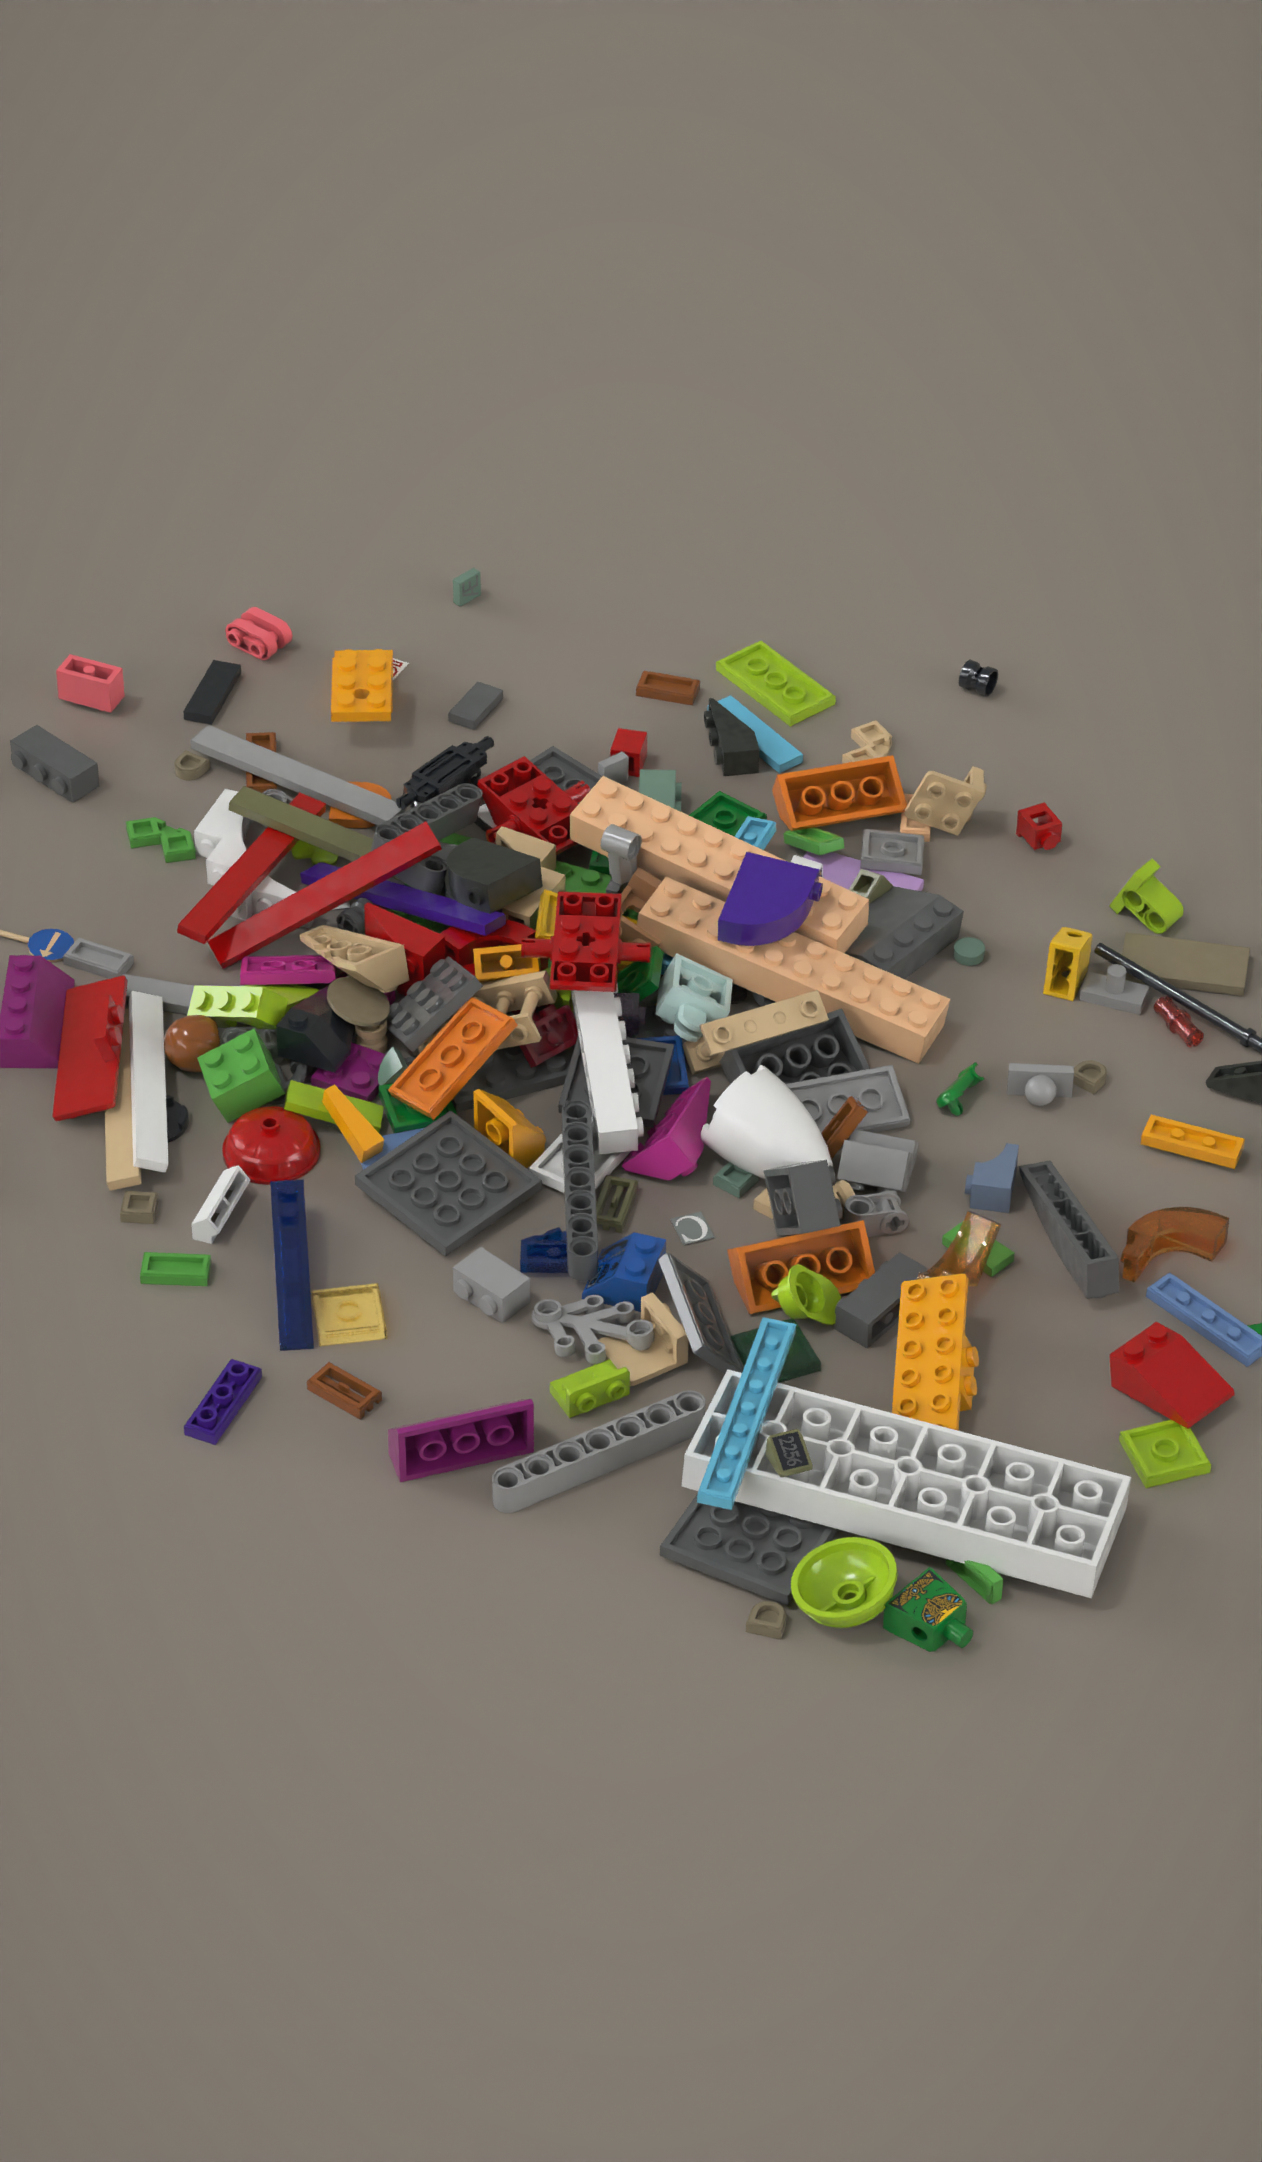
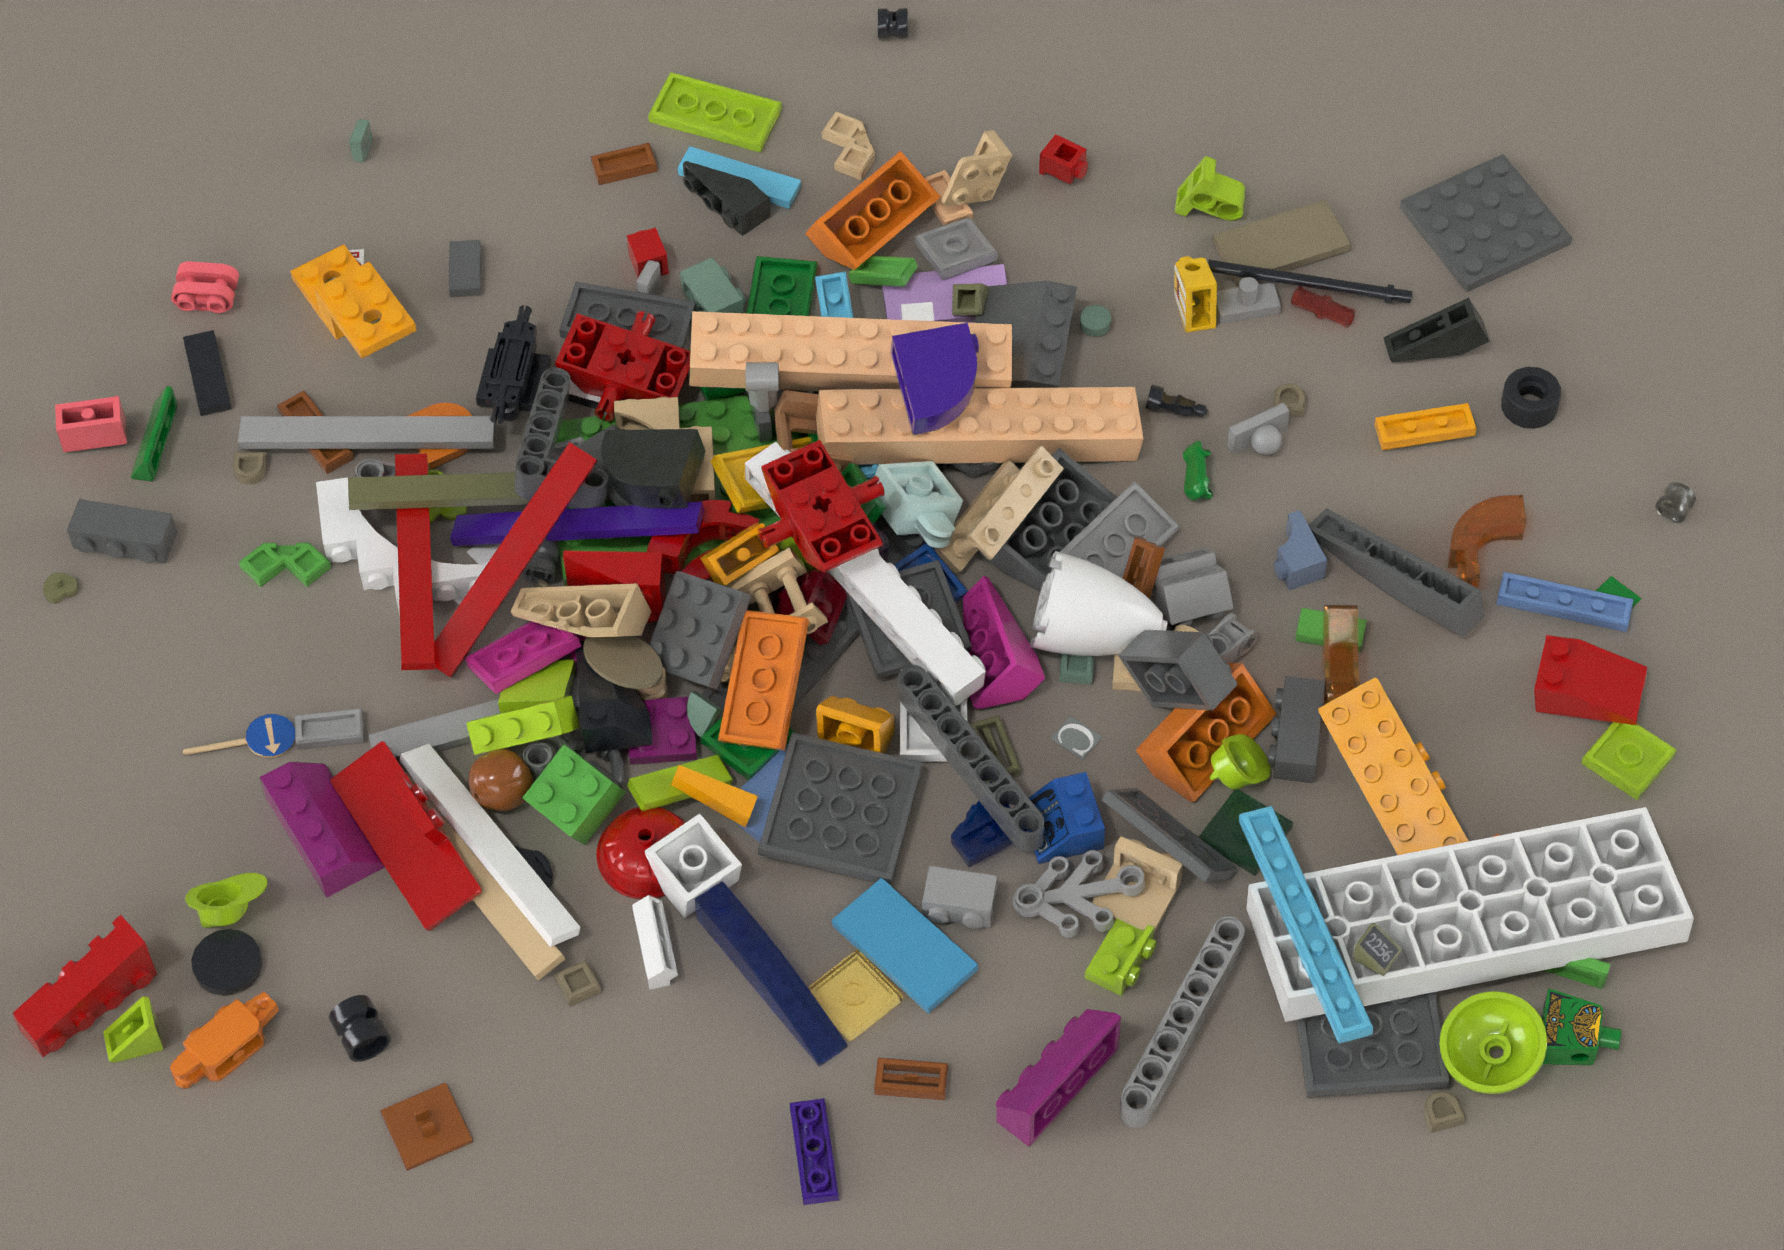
camera: 30 degrees left, 15 degrees up
(136, 715) = (155, 436): none -> green slope
(175, 1269) = (662, 1032): bright green tile -> none
(292, 1154) = (692, 863): none -> white slope
(418, 1297) = (904, 945): none -> dark azure tile
(972, 1024) = (1179, 404): none -> black piece

